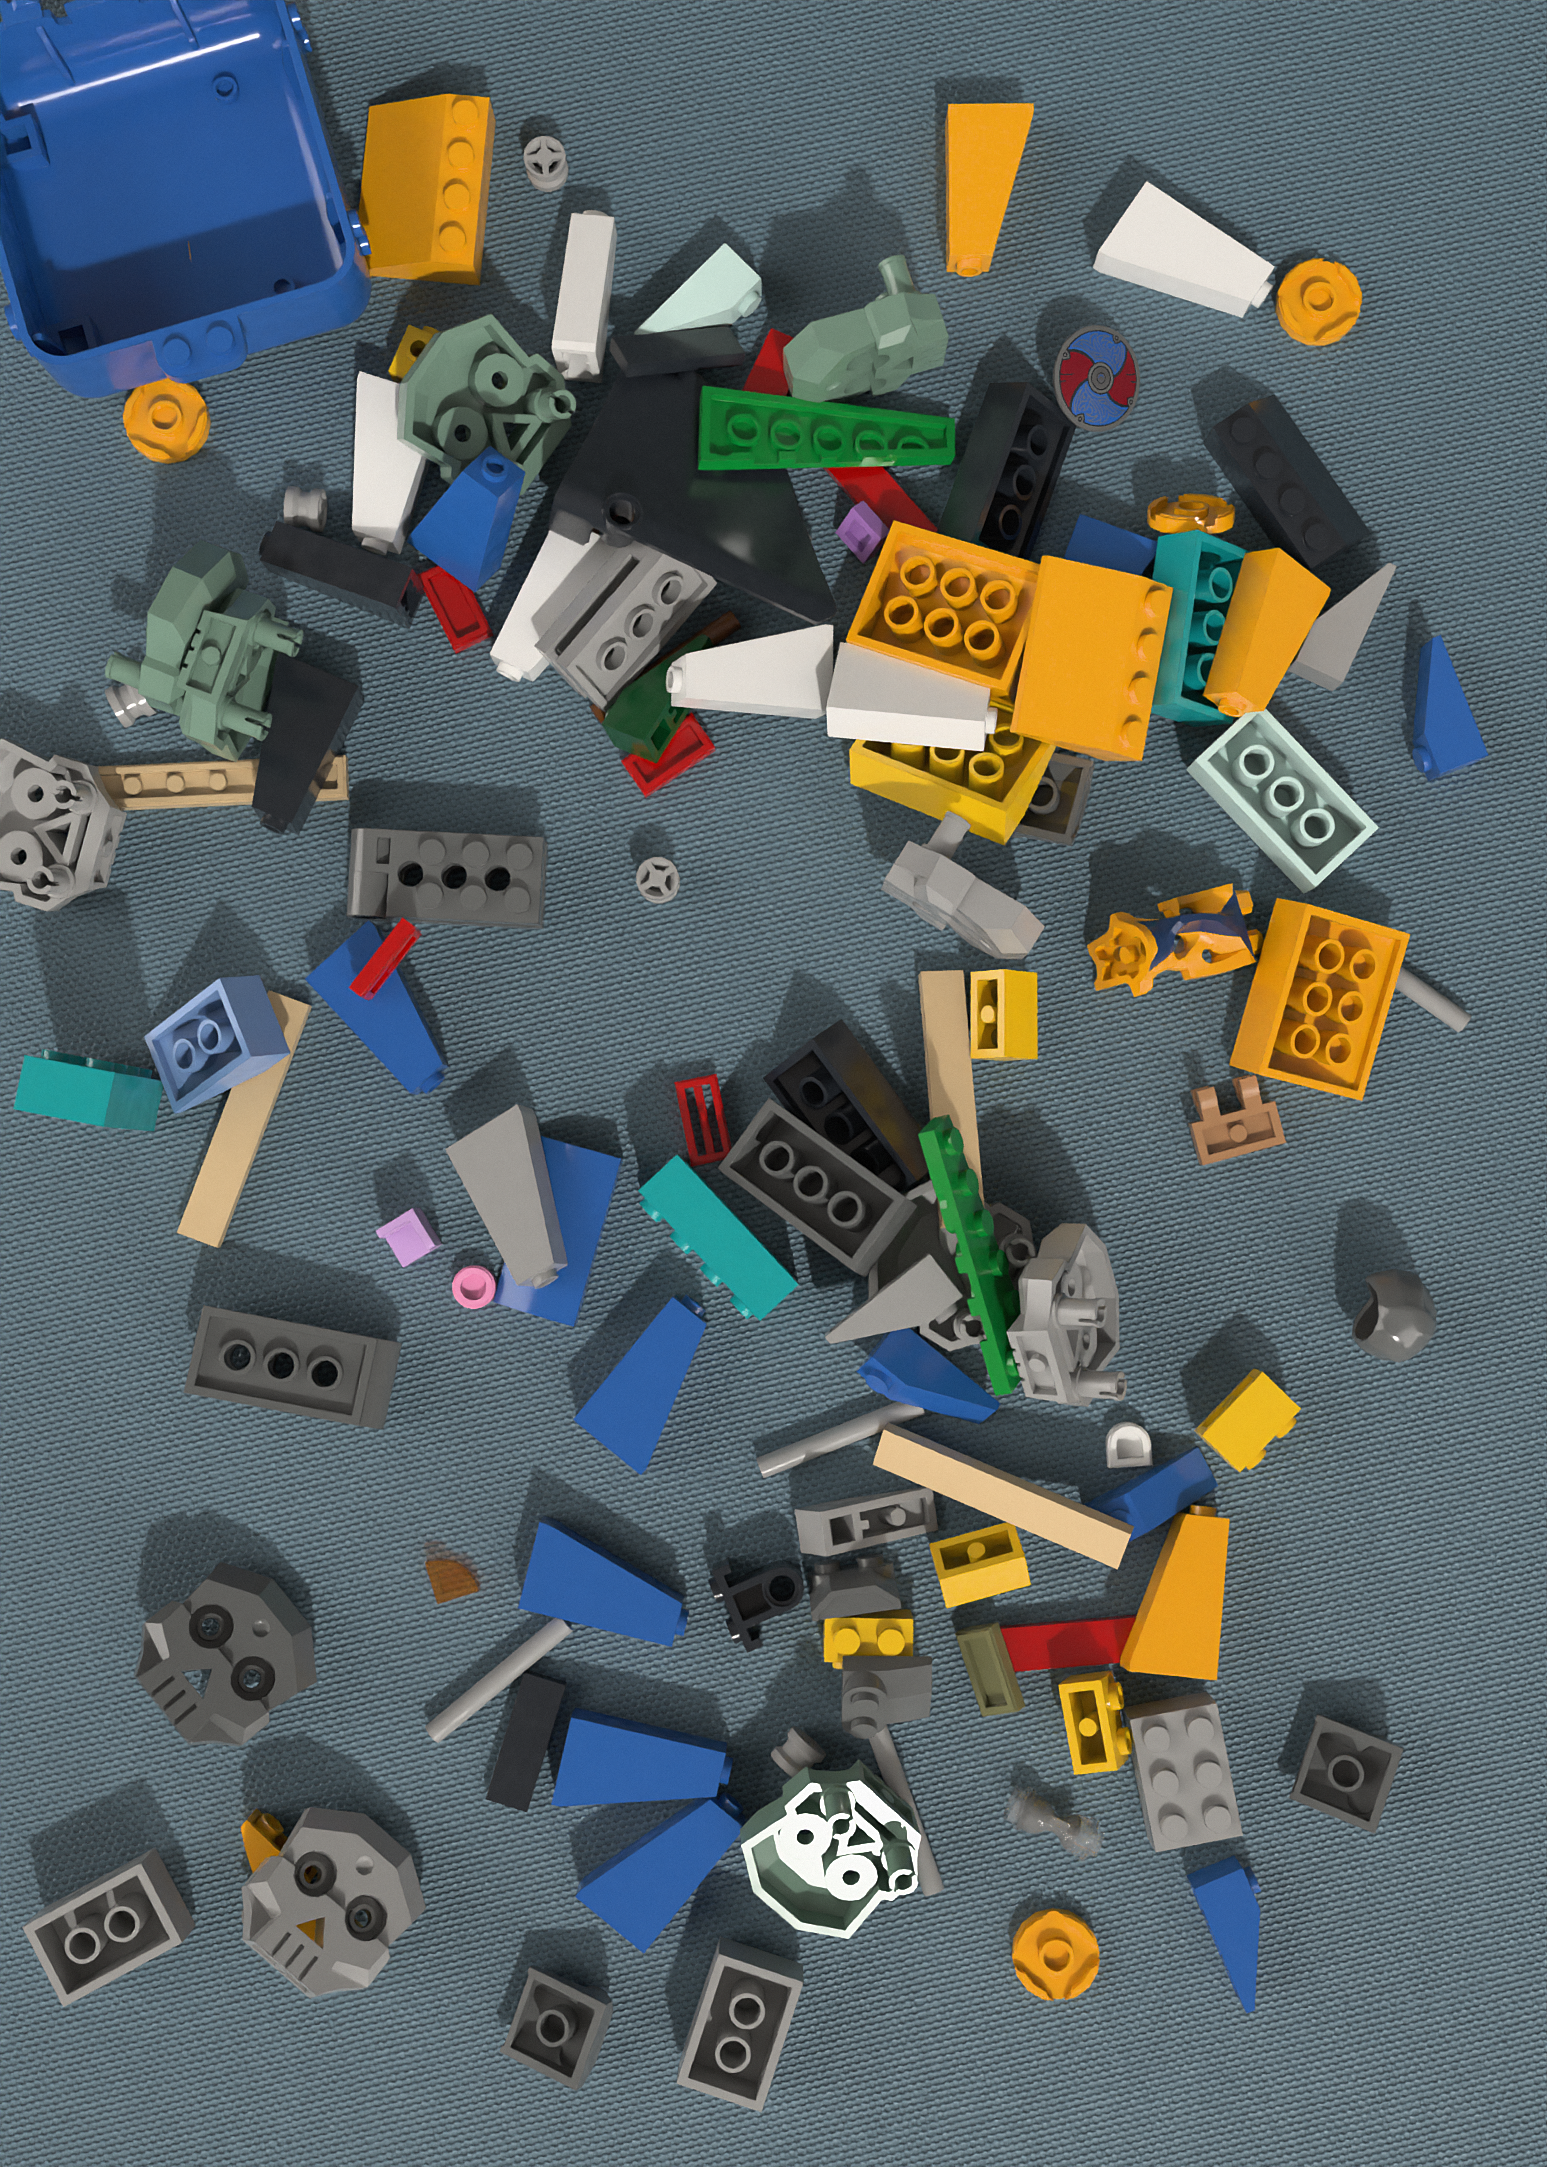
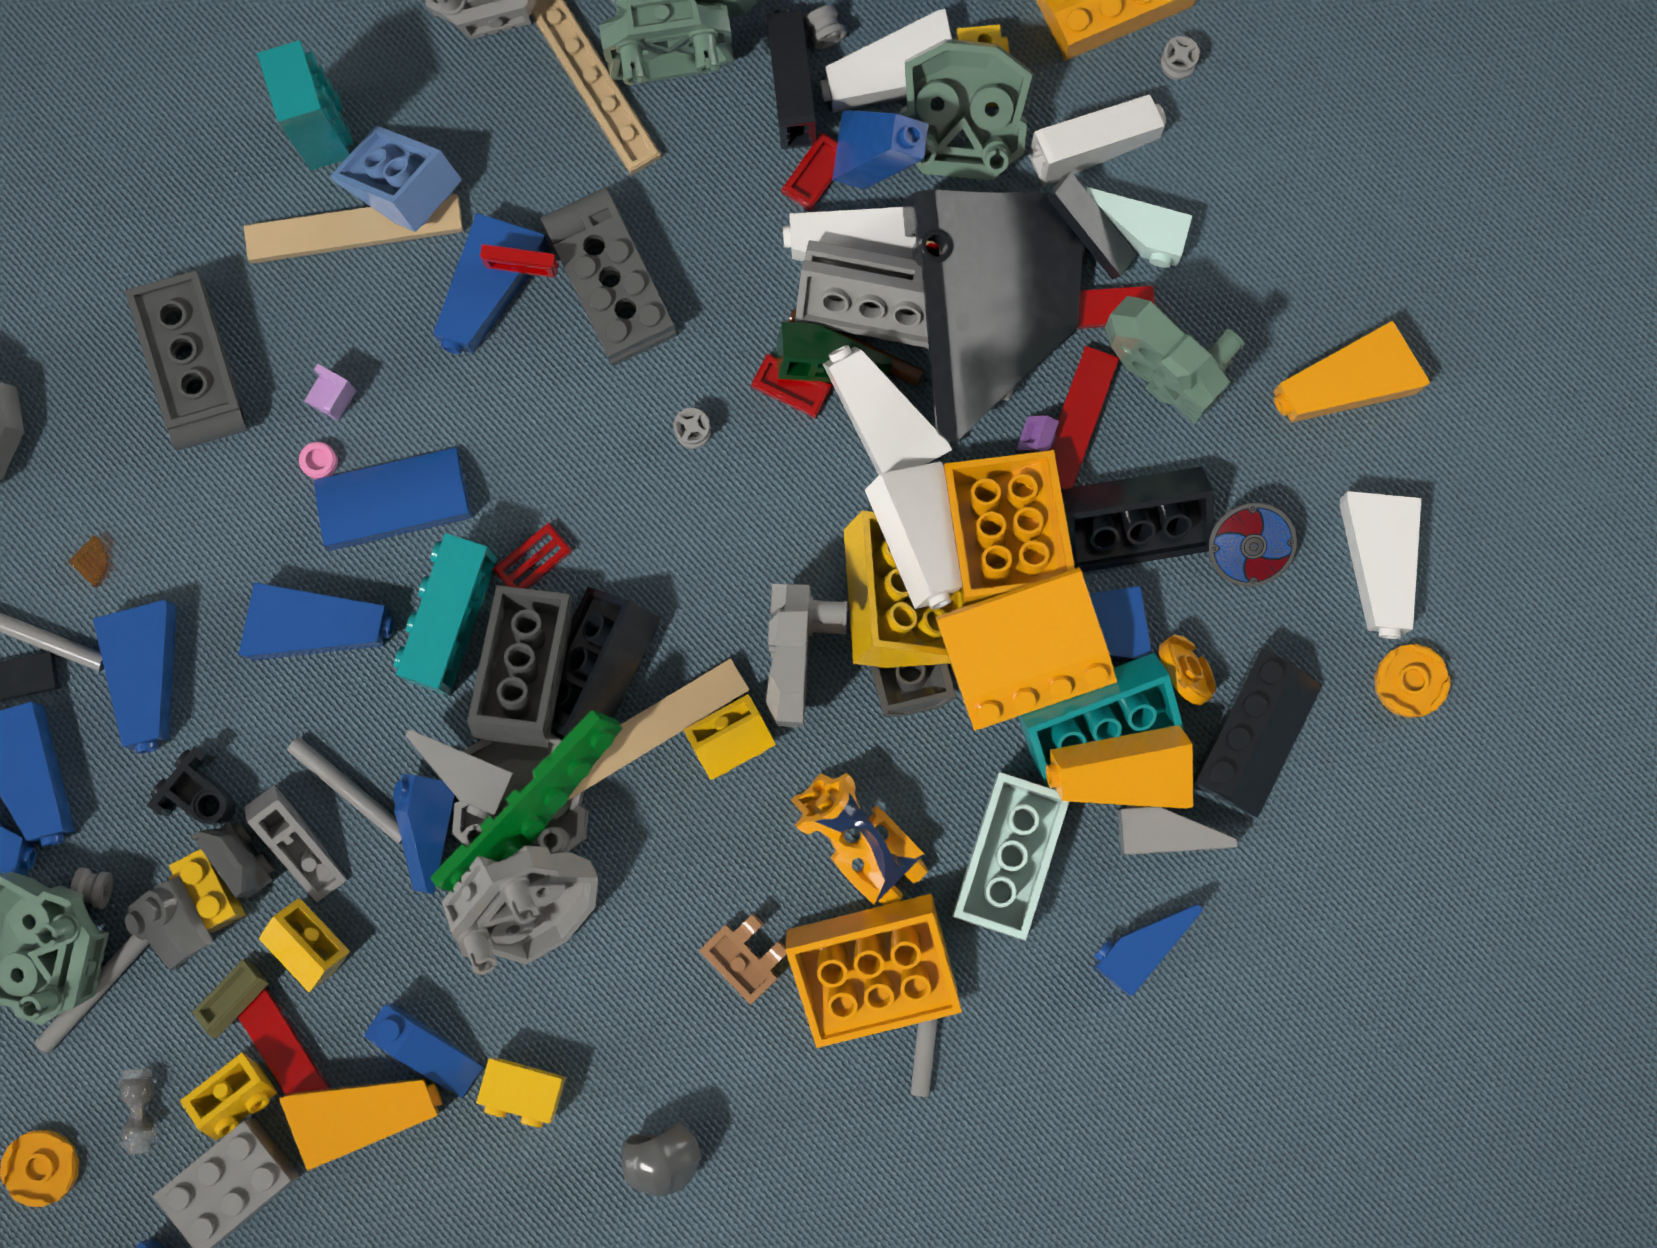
camera: 60 degrees right, 5 degrees down
(306, 733) = (652, 115): black slope -> none
(513, 1193) = (398, 448): light grey slope -> none
(787, 432) = (1076, 338): green wing -> none
(1003, 1495) = (364, 933): tan tile -> none
(1128, 1446) = (455, 1013): white tile -> none

